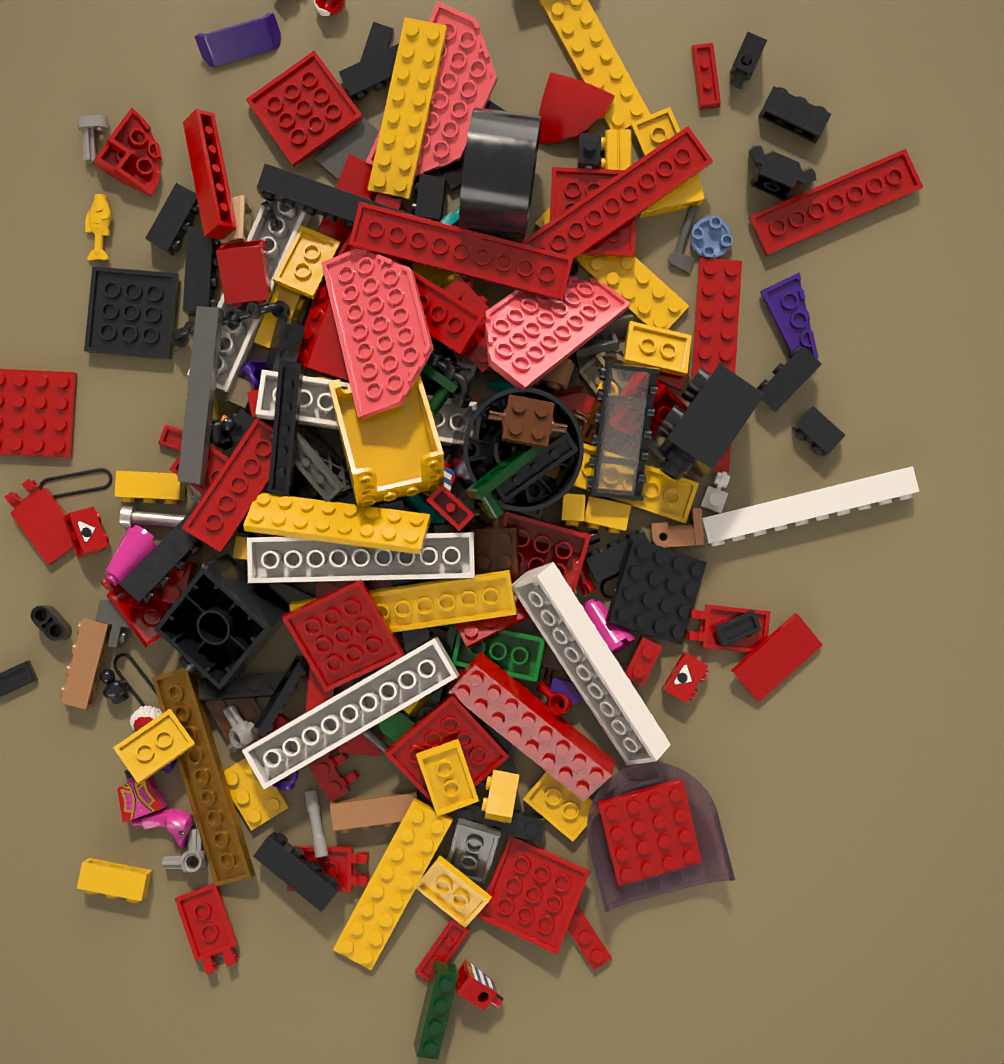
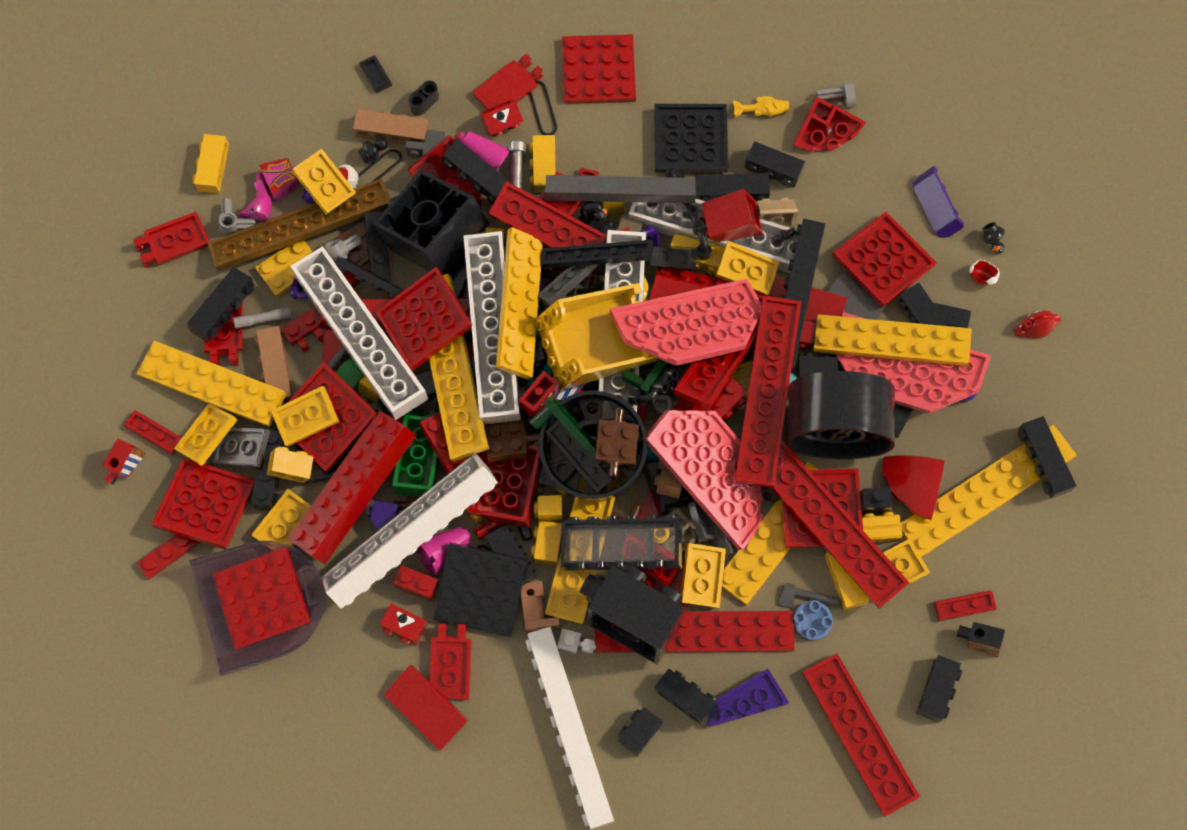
camera: 80 degrees right, 15 degrees down
(209, 174) = (814, 185): red brick -> none
(436, 1010) = (102, 427): dark green brick -> none
(556, 700) = (374, 507): red bar -> none
(737, 628) = (451, 667): black tile -> none
(777, 173) = (883, 674): black slope -> none

